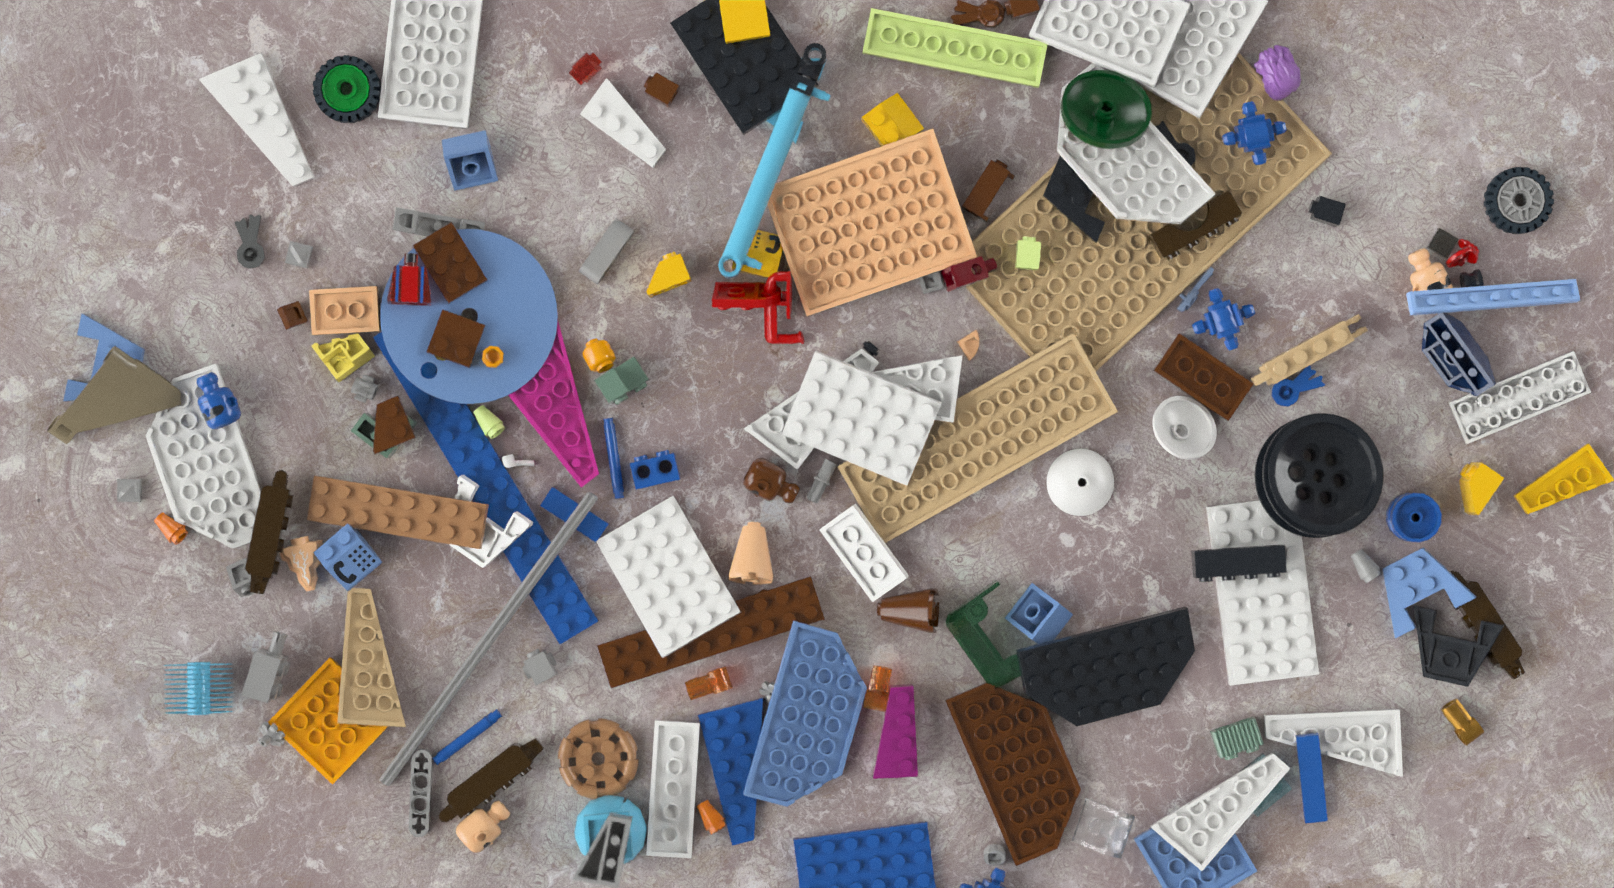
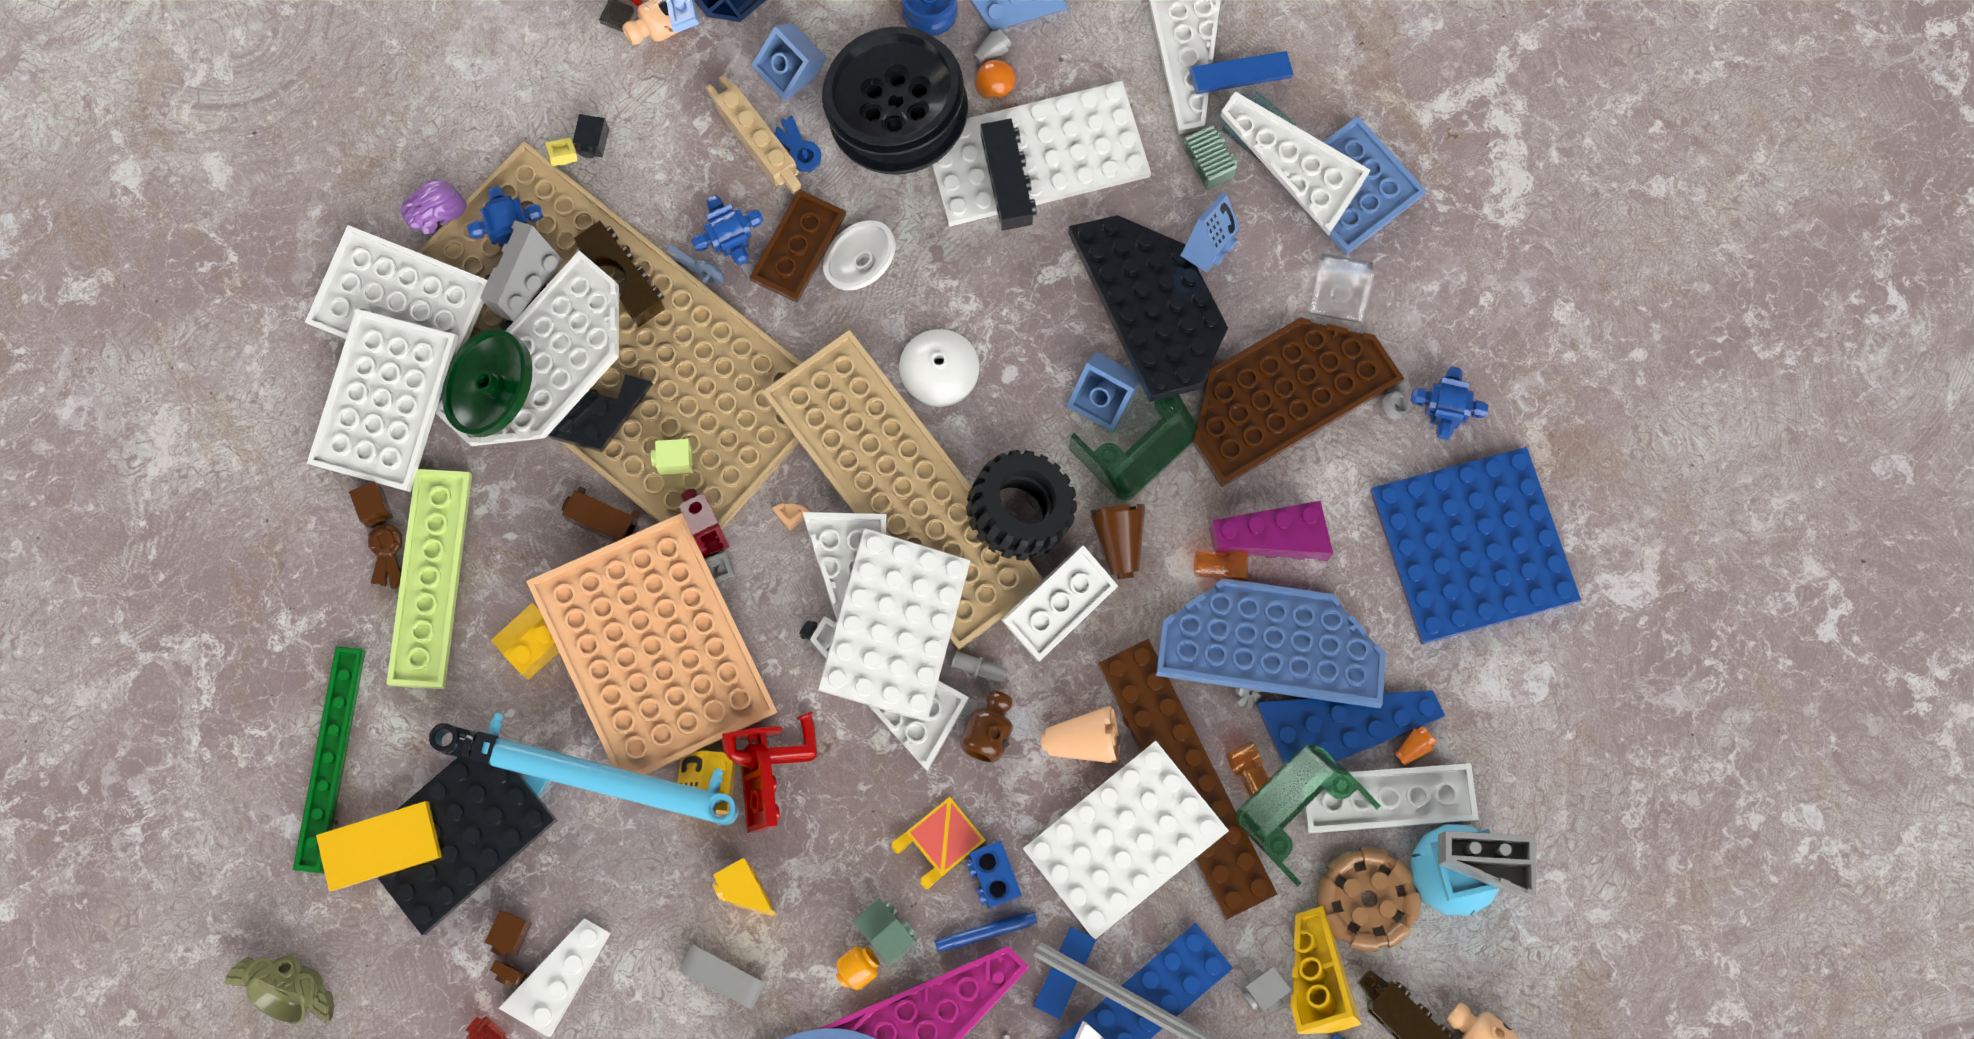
camera: 100 degrees left, 15 degrees down
(536, 709) = (1321, 989): none -> yellow wedge
(631, 86) = (507, 974): none -> reddish brown plate
(683, 708) = (1288, 793): none -> clear green windscreen
(690, 434) = (943, 838): none -> coral flag
(952, 560) = (1041, 481): none -> black tyre
(1159, 727) = (1212, 235): none -> medium blue slope
(1202, 143) = (521, 272): none -> light grey wedge
(1316, 184) = (561, 151): none -> light yellow plate
(1335, 564) = (995, 79): none -> orange hair
(1376, 388) = (788, 60): none -> medium blue slope

